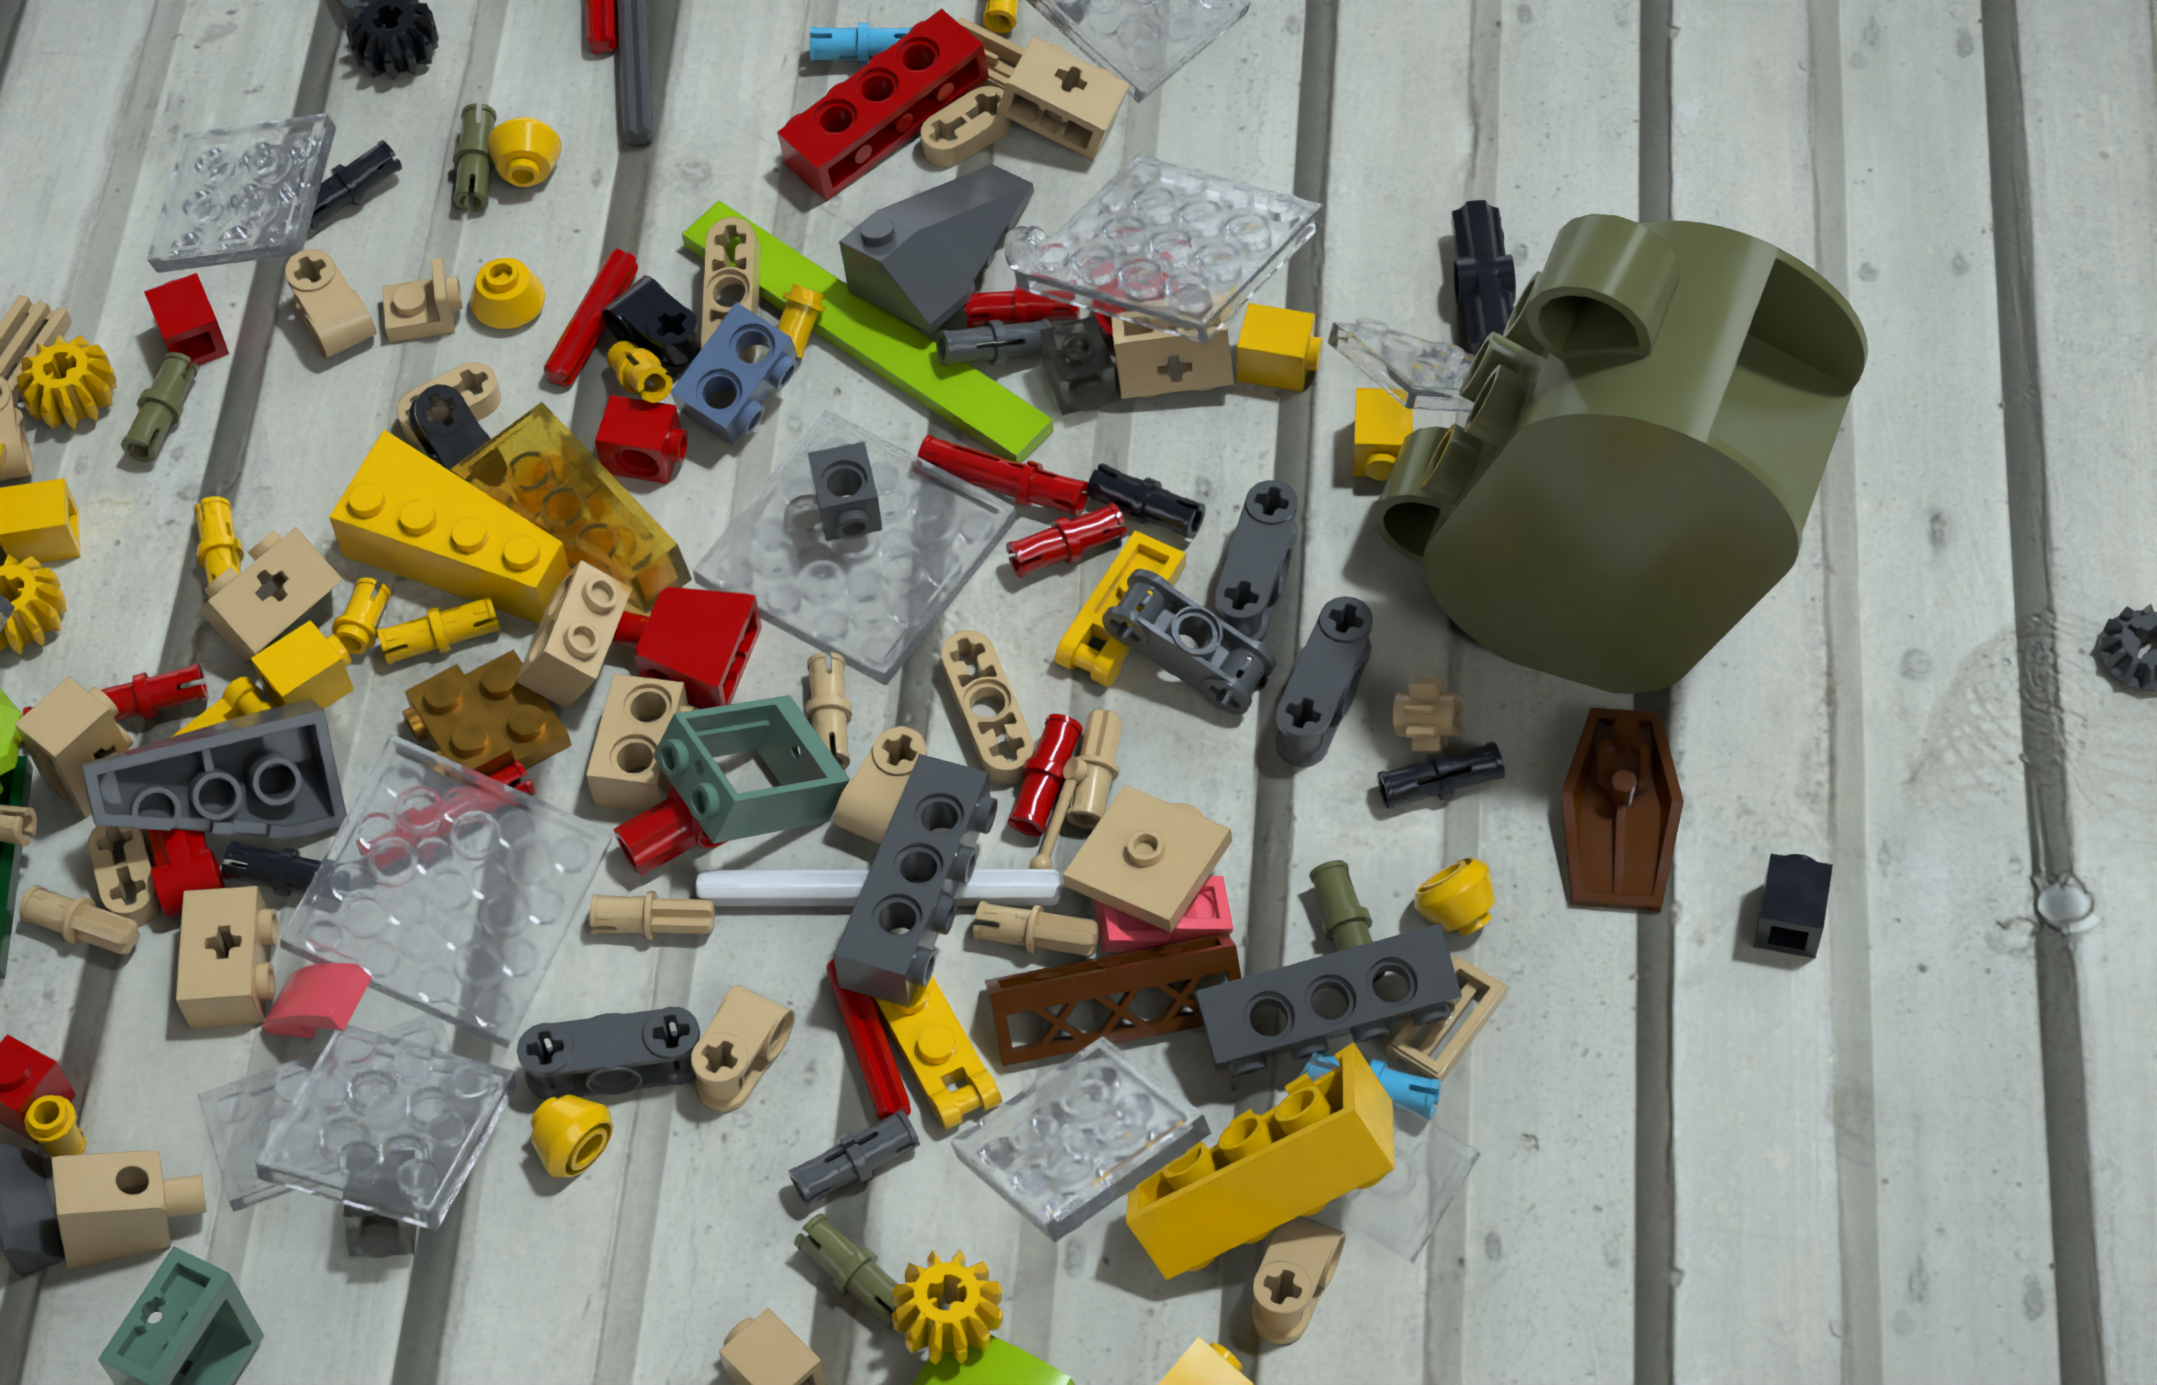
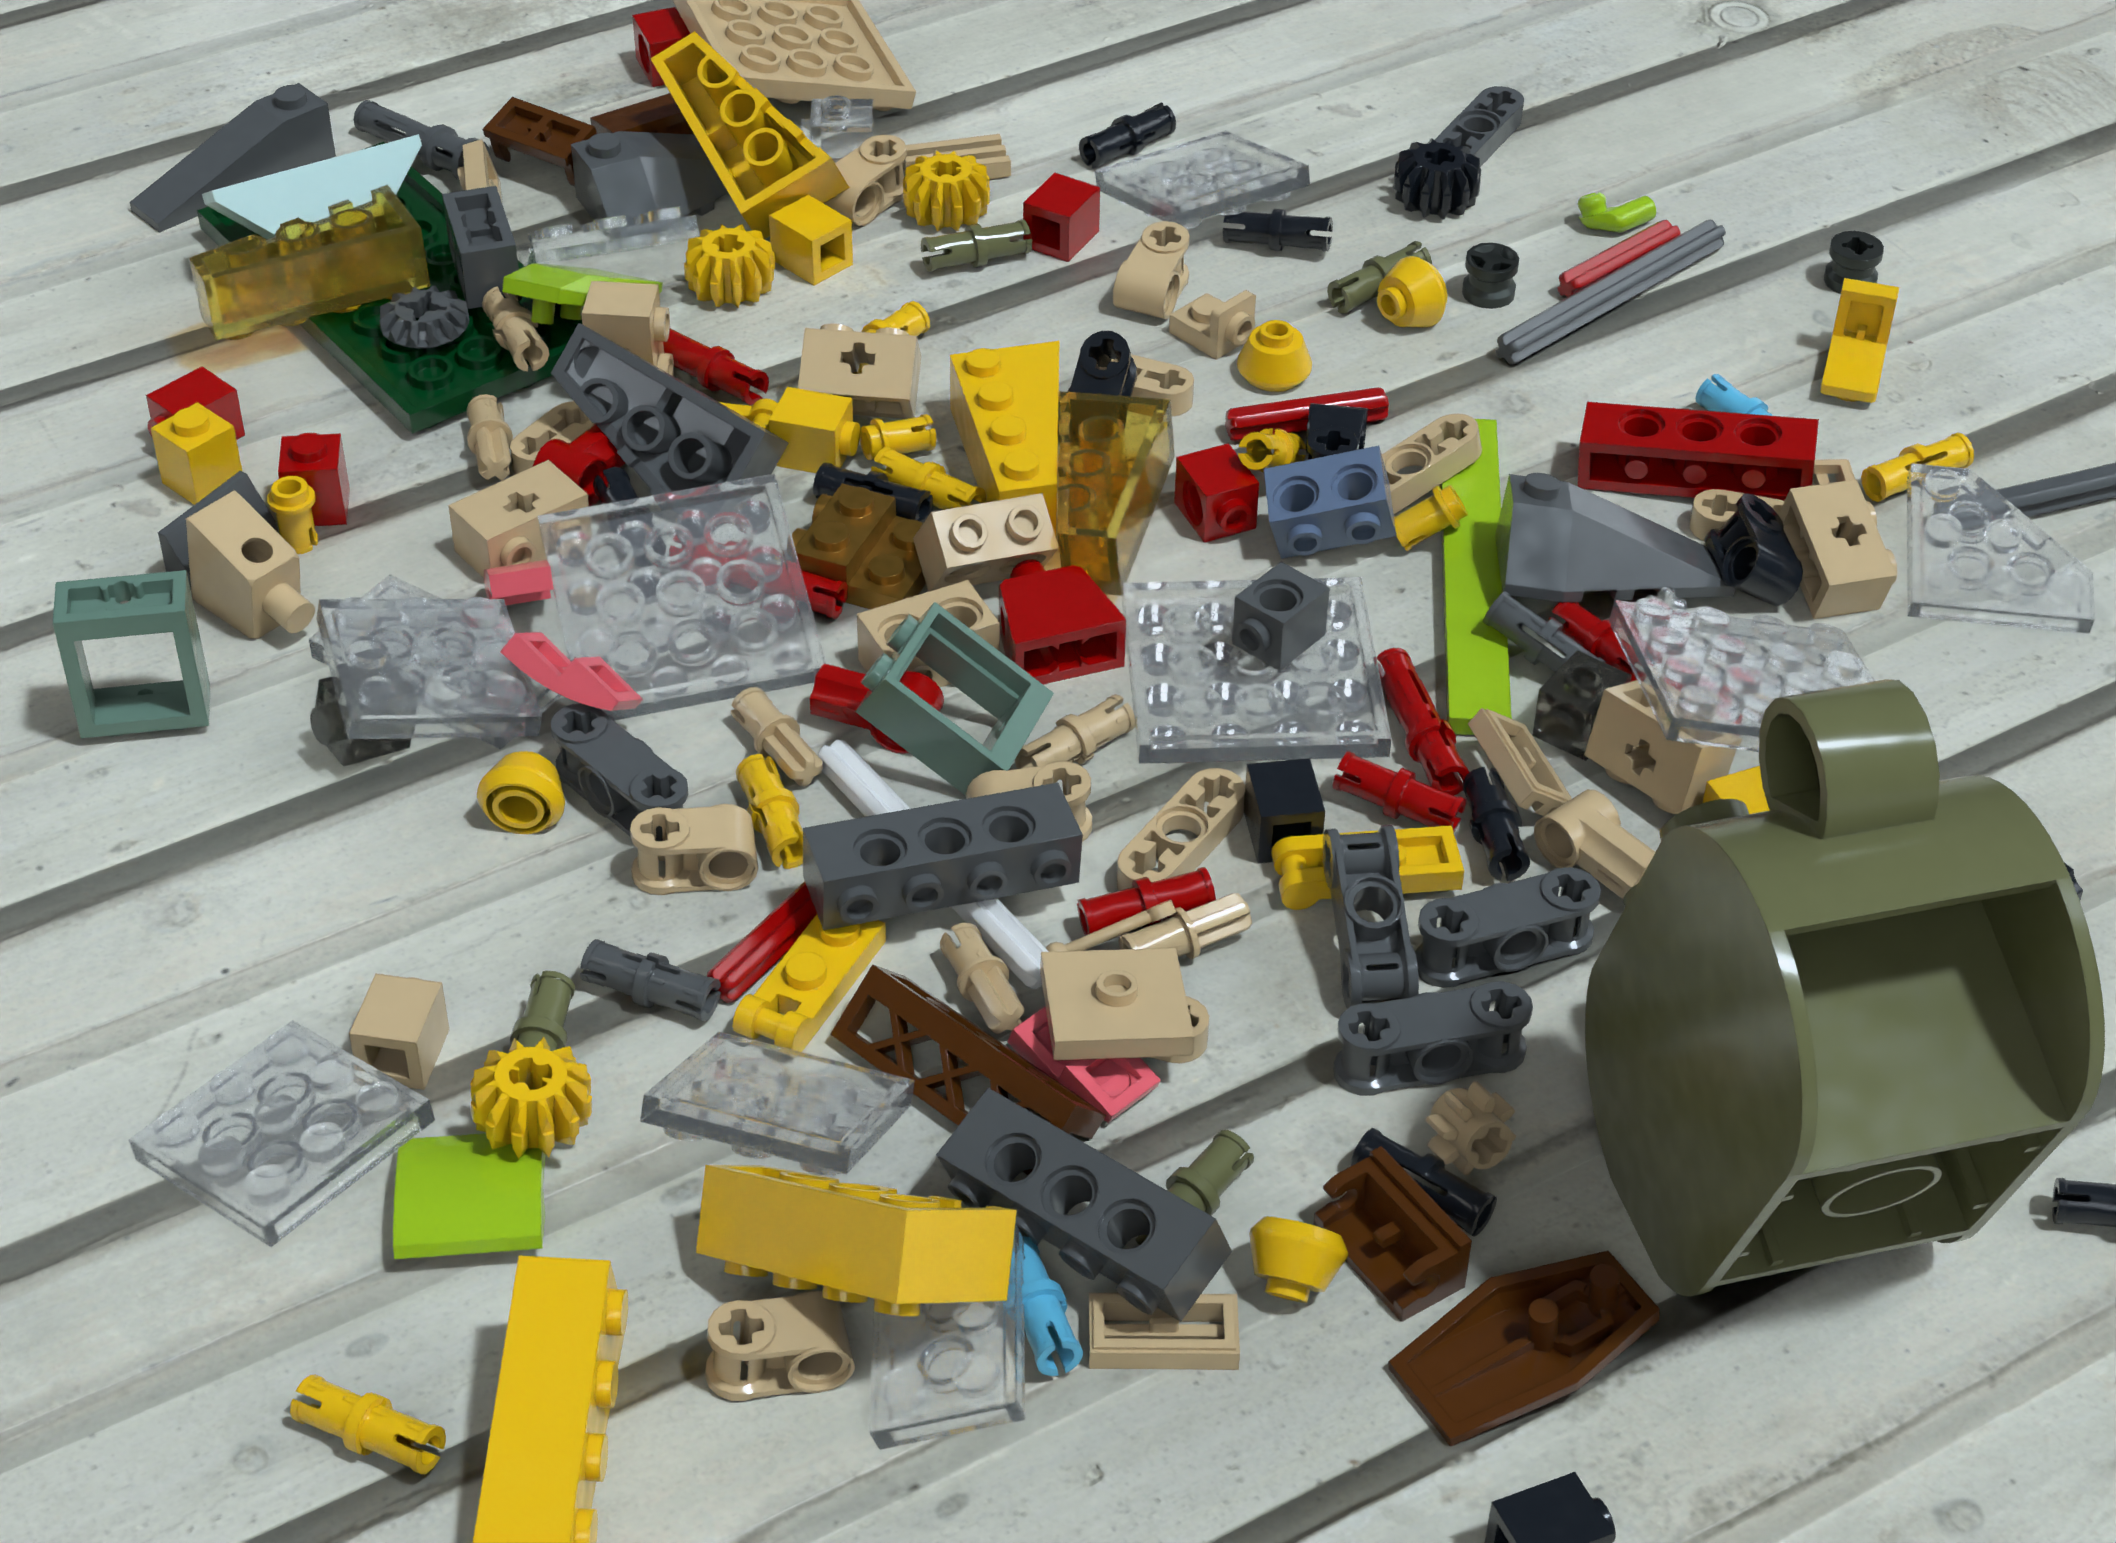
camera: 50 degrees right, 15 degrees down
(111, 205) = (1127, 135): none -> black pin
(381, 693) = (910, 502): none -> black pin
(504, 1019) = (582, 680): none -> coral slope
(544, 84) = (1490, 275): none -> pearl dark grey wheel
(733, 966) = (772, 809): none -> yellow pin
(1008, 144) = (1756, 552): none -> black piece
(1026, 623) = (1281, 803): none -> black brick
(1104, 444) = (1519, 762): none -> tan tile
(1208, 454) = (1591, 835): none -> tan piece
(1480, 821) = (1395, 1235): none -> reddish brown hinge

